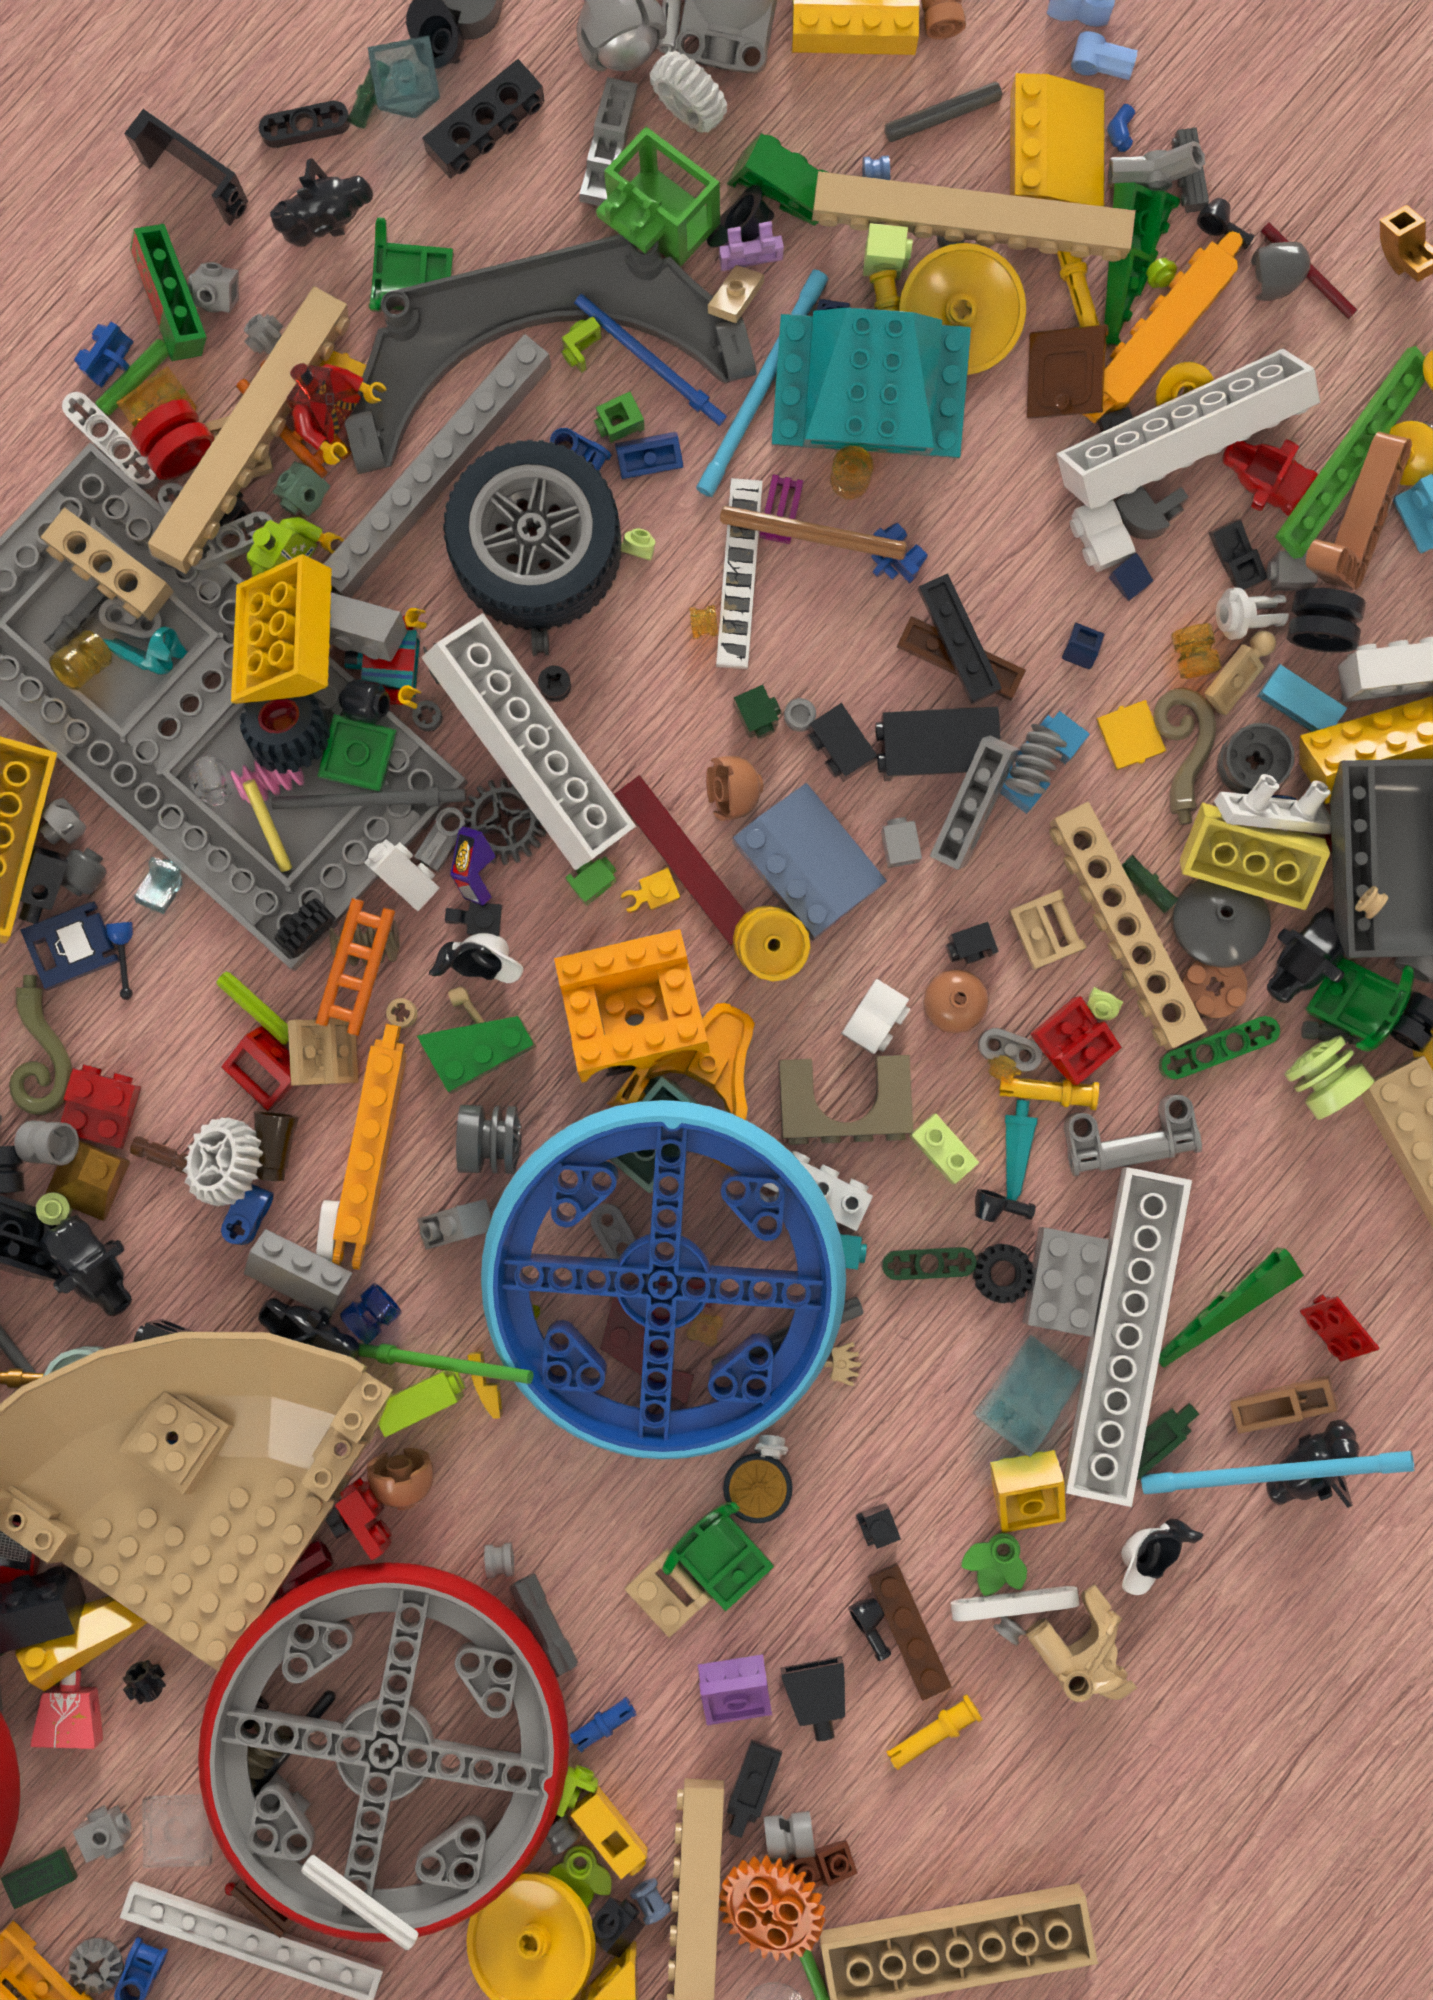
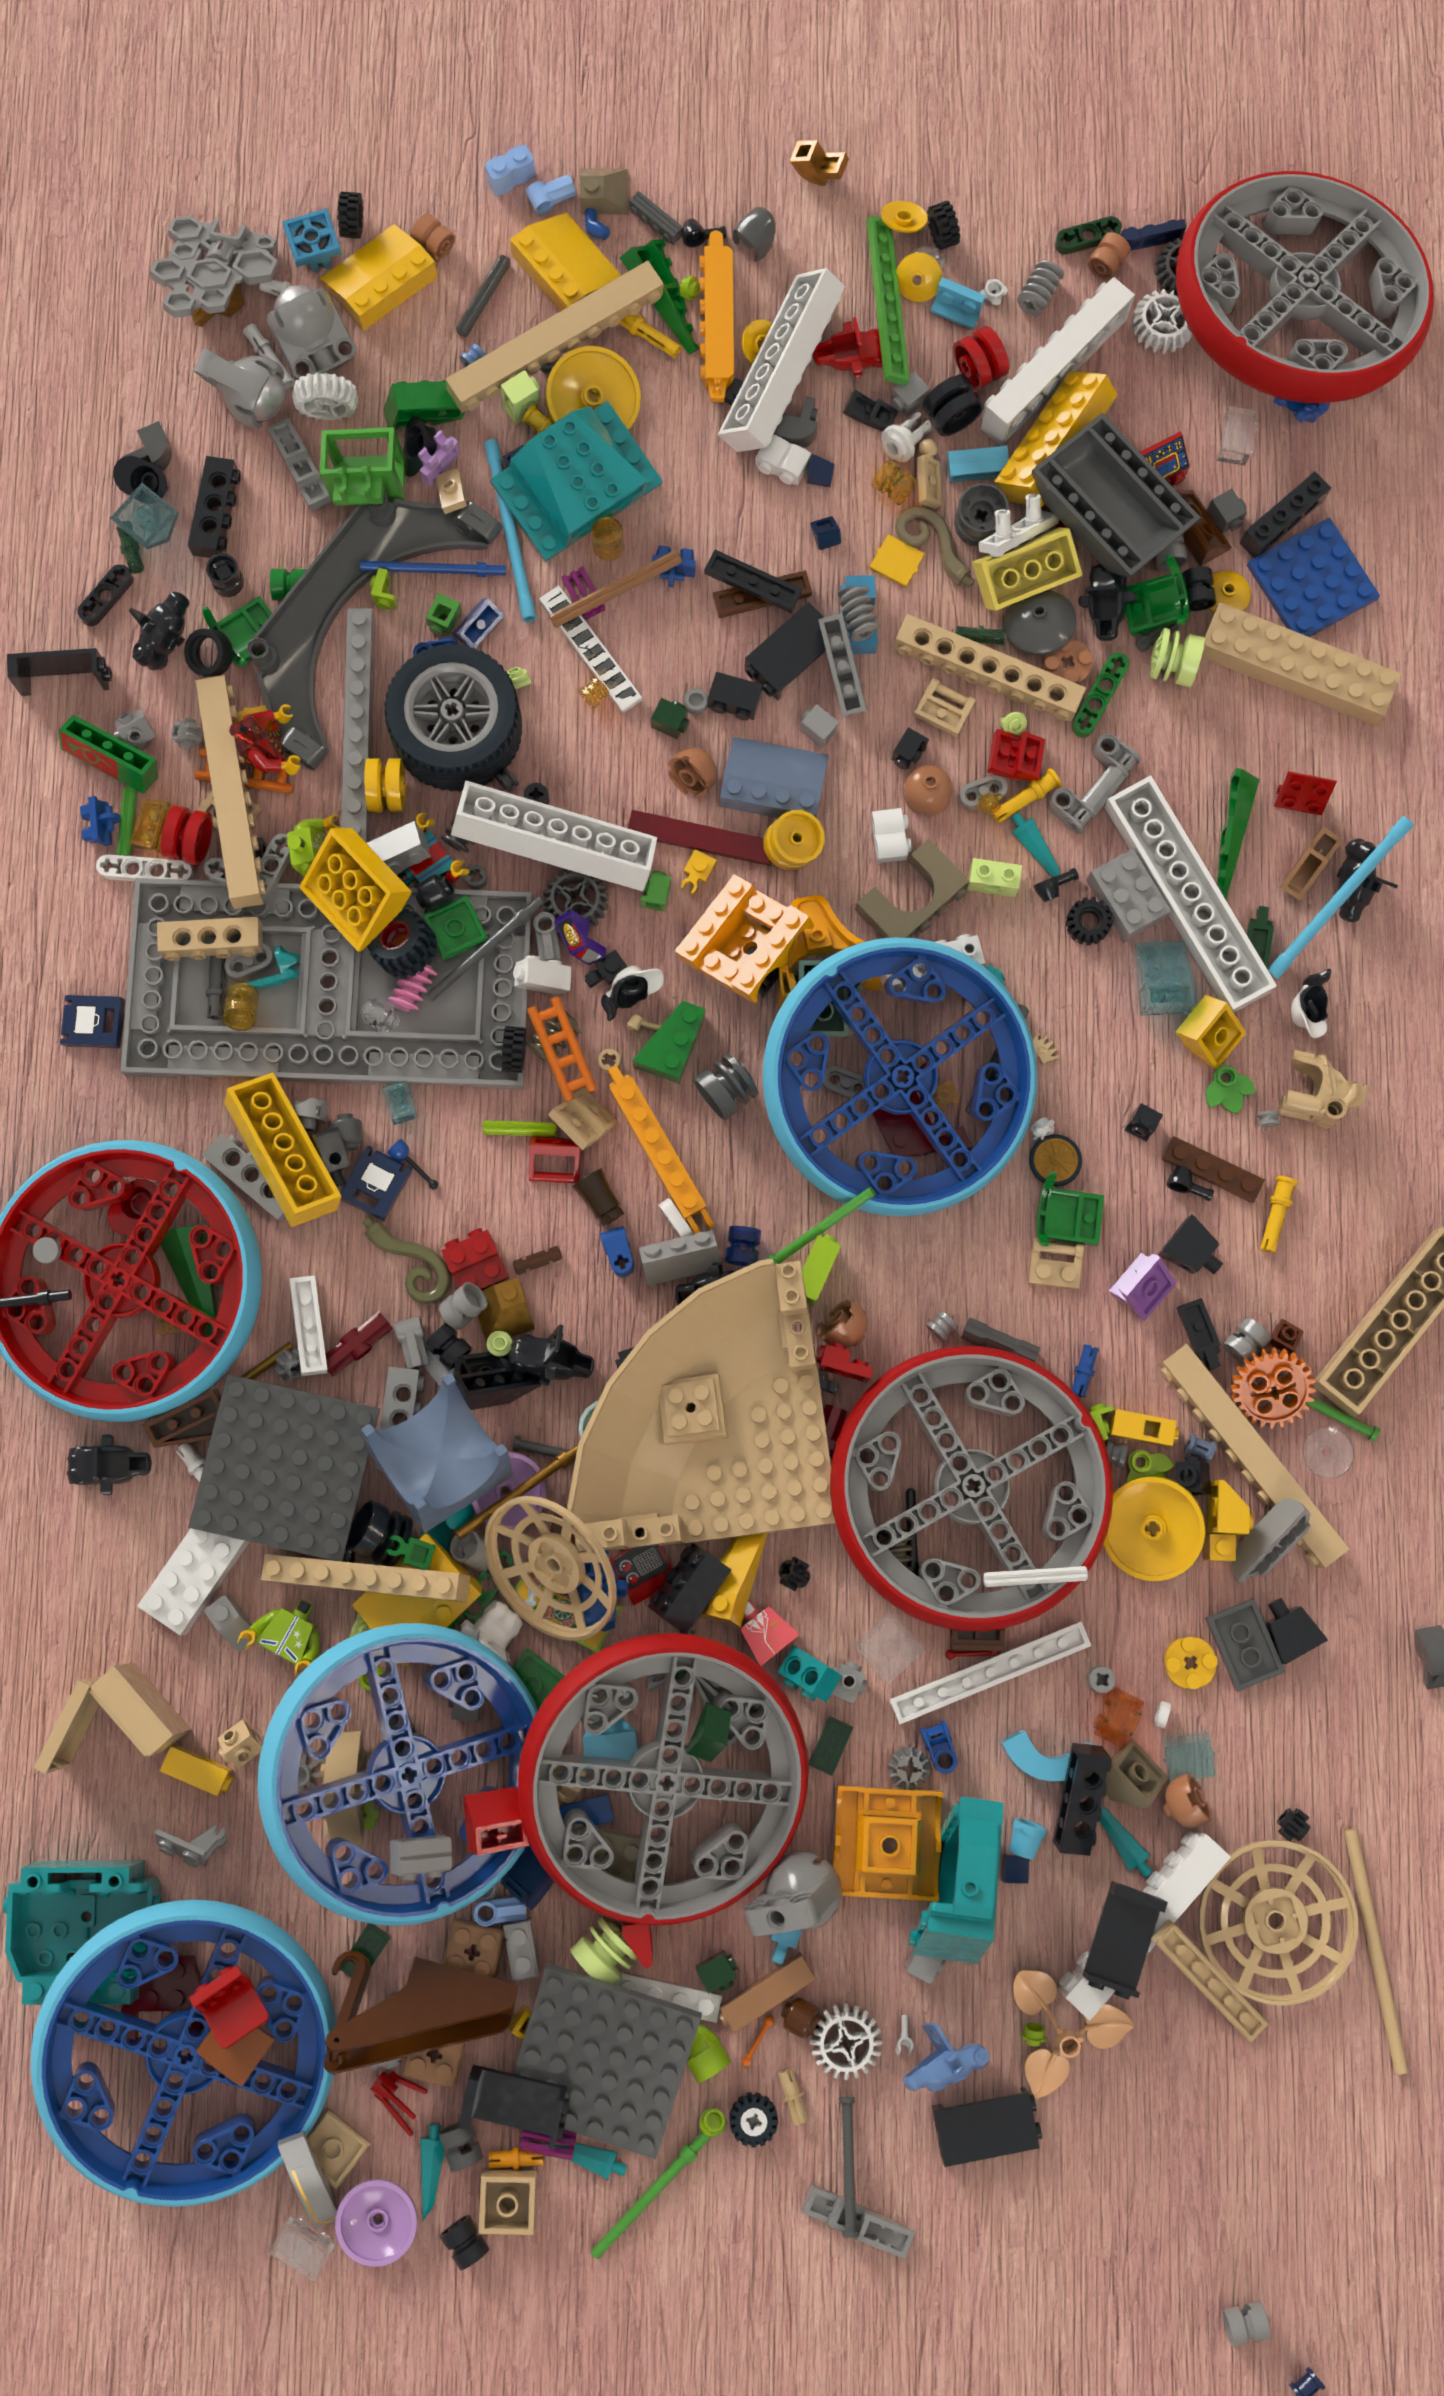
camera: 40 degrees left, 5 degrees down
(70, 1796) = (810, 1674): none -> teal brick
(222, 1161) = (584, 1213): white gear -> none
(267, 825) = (437, 1012): light yellow bar -> none
(300, 489) = (288, 804): sand green brick -> none
(335, 259) = (192, 652): none -> black tyre
(409, 549) = (385, 785): none -> yellow wheel
(435, 199) = (225, 575): none -> black wheel
(455, 1224) = (748, 1154): light grey slope -> none
(486, 252) = (282, 582): none -> green wheel
(488, 1393) = (852, 1235): yellow slope -> none
(952, 1253) = (1049, 934): dark green beam -> none
(1015, 1603) = (1258, 1101): white beam -> none
(1066, 366) = (683, 384): reddish brown container -> none
(1157, 167) = (636, 230): light grey piece -> none
(1162, 97) = (604, 190): none -> dark tan slope
(1316, 277) = (780, 222): dark red bar -> none
(1365, 516) = (933, 361): nougat beam -> none
(1371, 902) = (1117, 533): tan bush -> none
(1399, 593) = (981, 357): none -> red wheel

